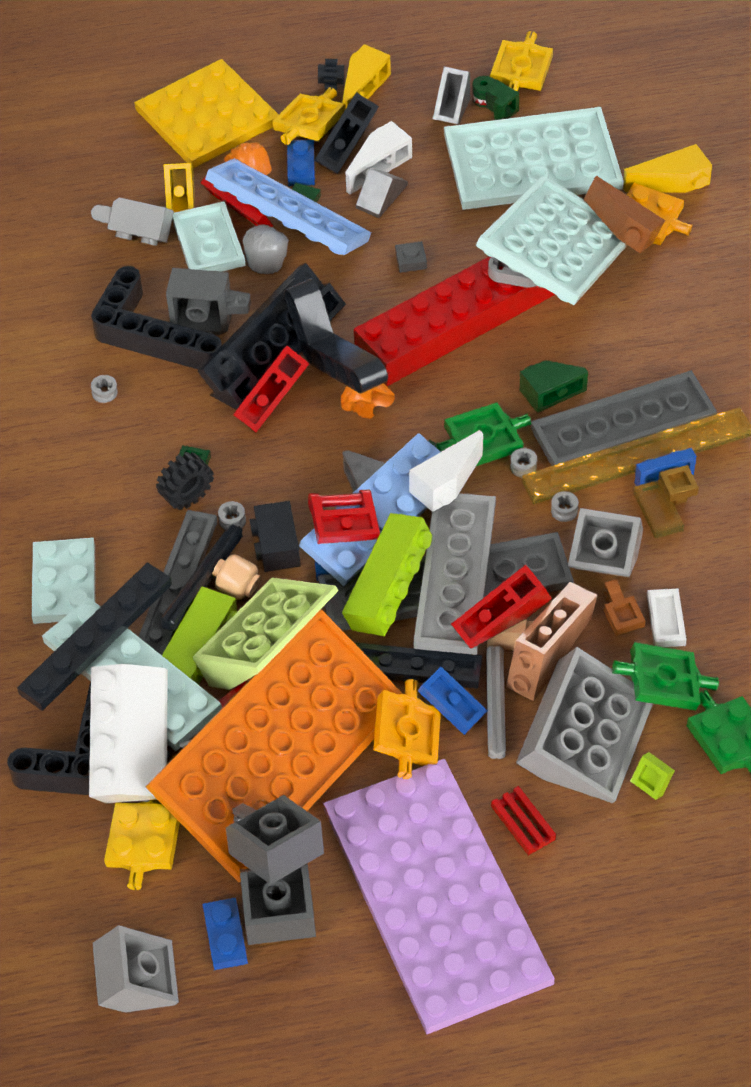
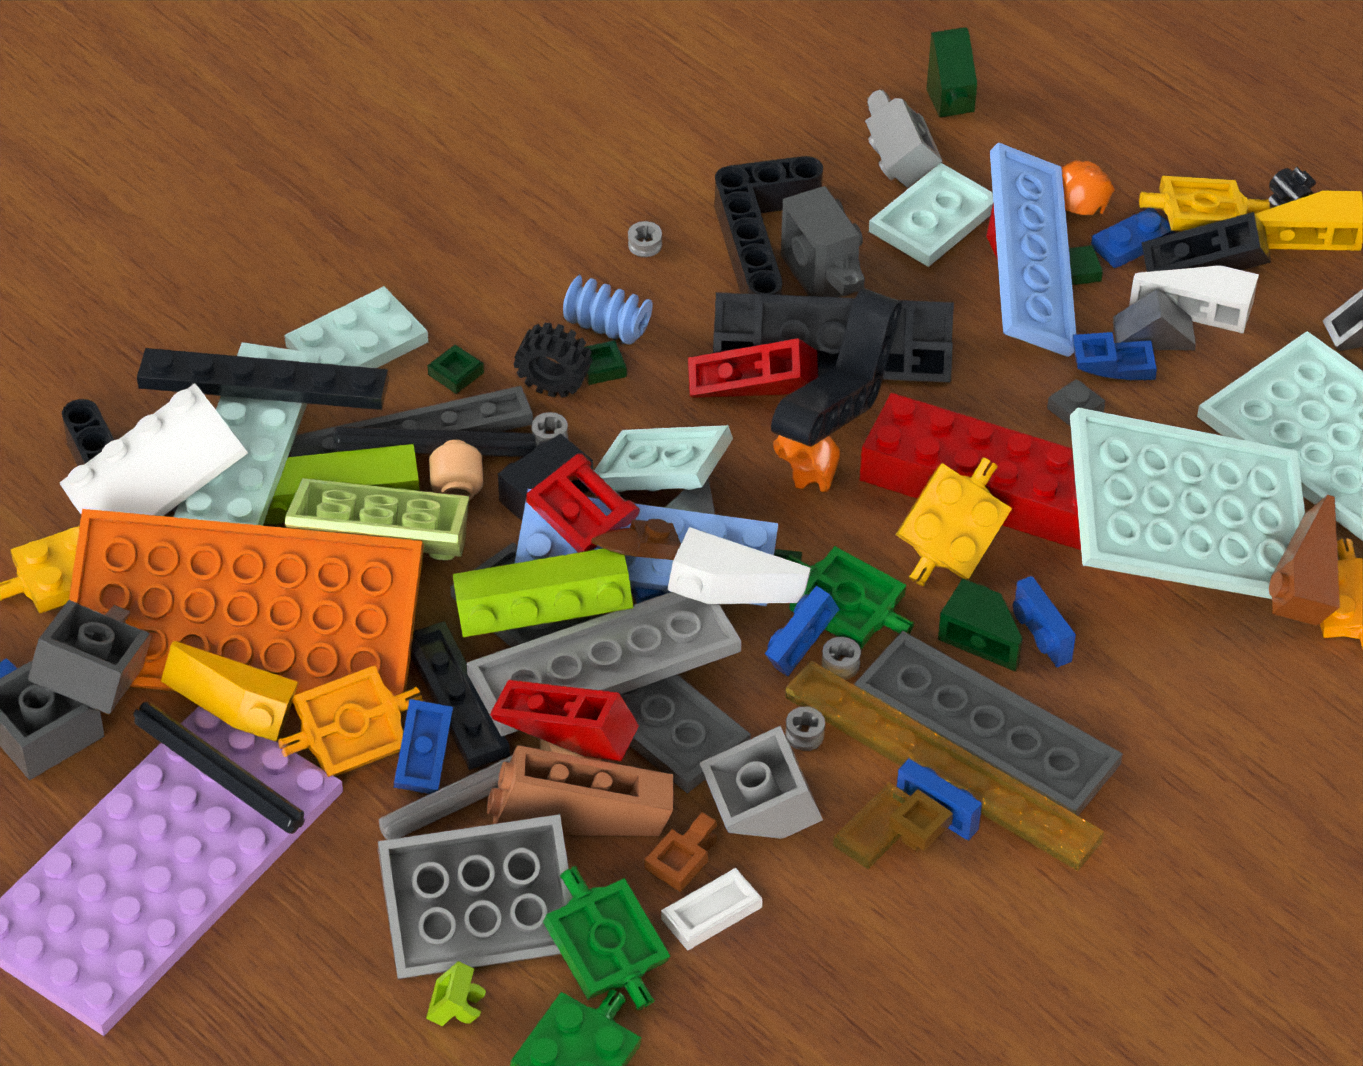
camera: 55 degrees right, 5 degrees down
(106, 168) = (951, 72): none -> dark green slope
(135, 540) = (455, 369): none -> dark green tile
(159, 432) = (606, 312): none -> light blue piece
(179, 186) = (973, 152): yellow slope -> none
(207, 113) = (1132, 120): yellow plate -> none
(265, 249) = (963, 267): light grey hair -> none
(313, 465) = (663, 457): none -> light aqua plate
(341, 779) = (231, 690): none -> yellow slope
(392, 219) = (1125, 360): none -> blue slope
(395, 500) = (643, 539): none -> reddish brown plate
(398, 816) = (219, 767): none -> black axle
(473, 353) = (953, 521): none -> yellow plate
(504, 477) = (809, 620): none -> blue plate
(533, 813) = (295, 889): red tile -> none
(571, 353) = (1044, 621): none -> blue plate

